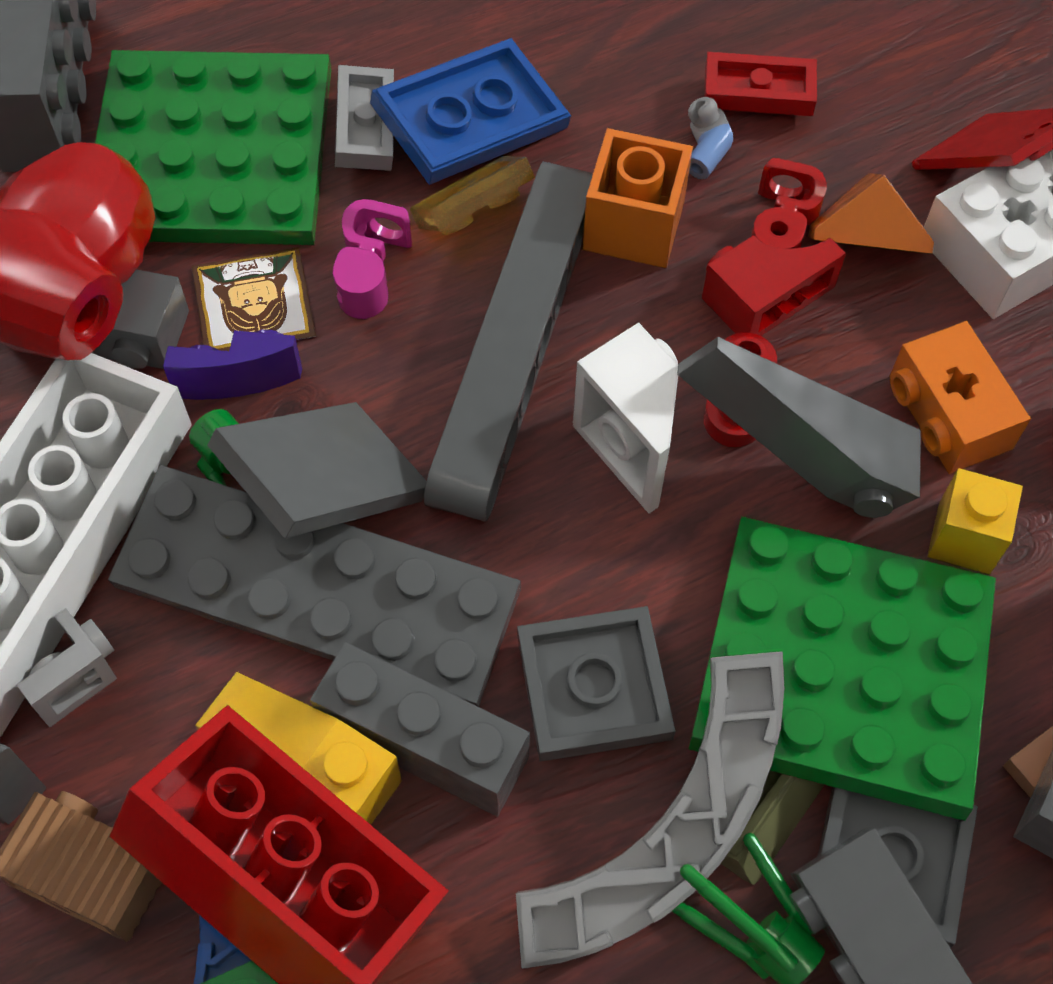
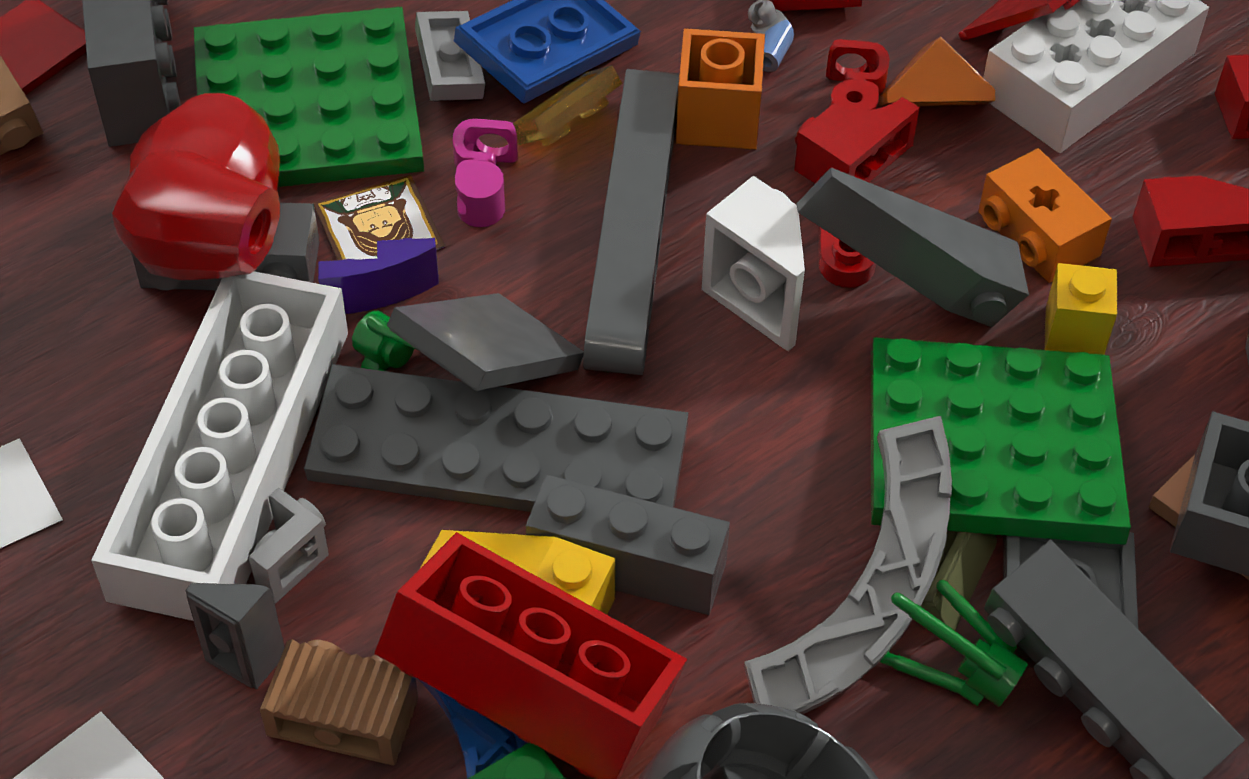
camera: 10 degrees left, 10 degrees down
(594, 683) = (774, 489): dark grey plate -> none

